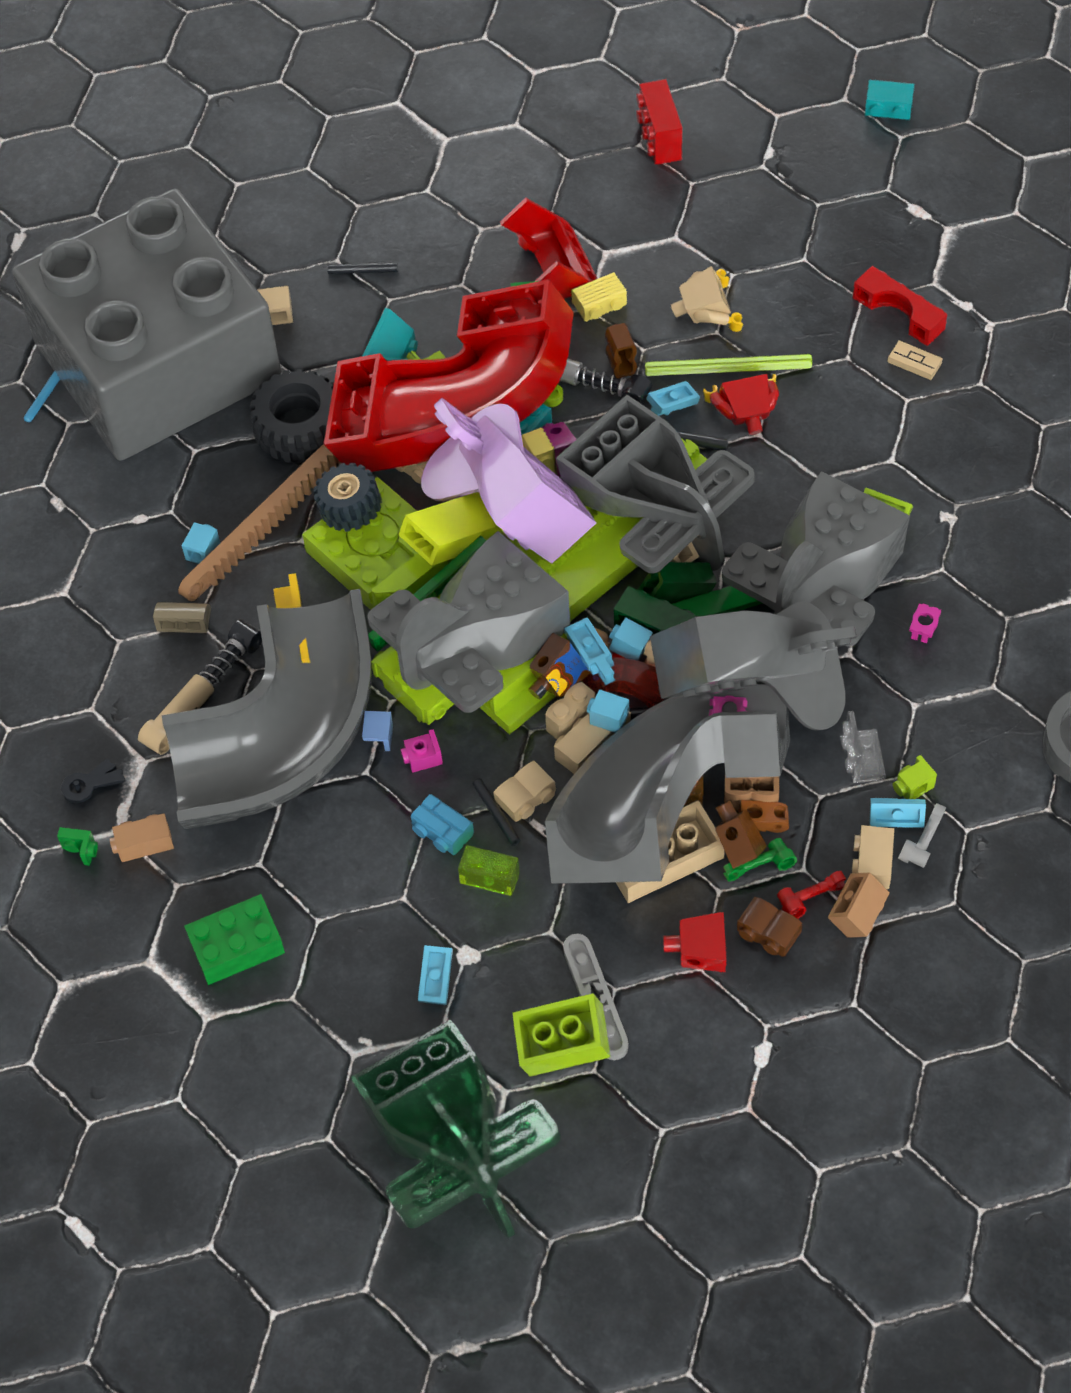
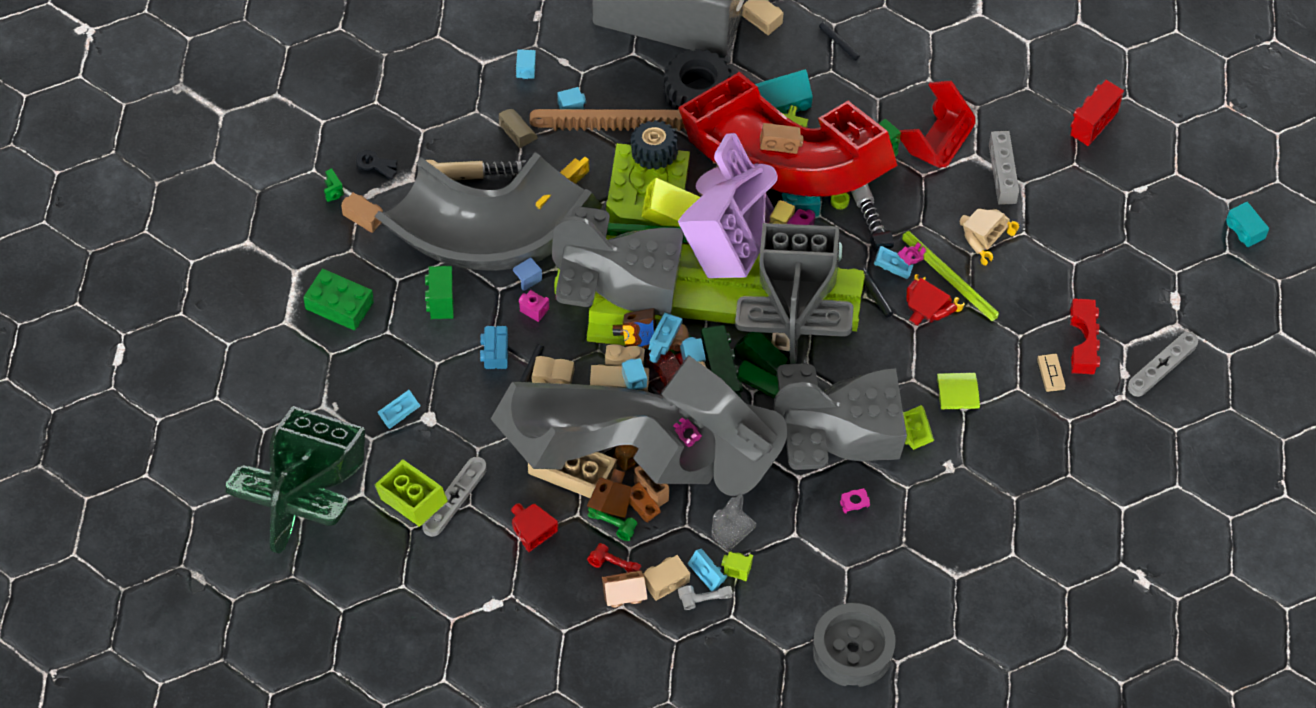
camera: 45 degrees right, 0 degrees up
(111, 552) = (526, 64): none -> medium azure brick
(330, 826) = (440, 293): none -> green brick
(462, 376) = (780, 138): none -> medium nougat brick
(488, 870) = (485, 389): clear neon green brick -> none
(599, 297) = (933, 174): light yellow brick -> none
(620, 350) = (899, 210): reddish brown brick -> none
(647, 236) = (1003, 167): none -> light grey brick
(673, 376) = (907, 253): none -> dark pink piece
(769, 927) = (572, 553): reddish brown brick -> none
(870, 448) = (958, 391): none -> lime slope
(986, 285) = (1151, 374): none -> light grey piece

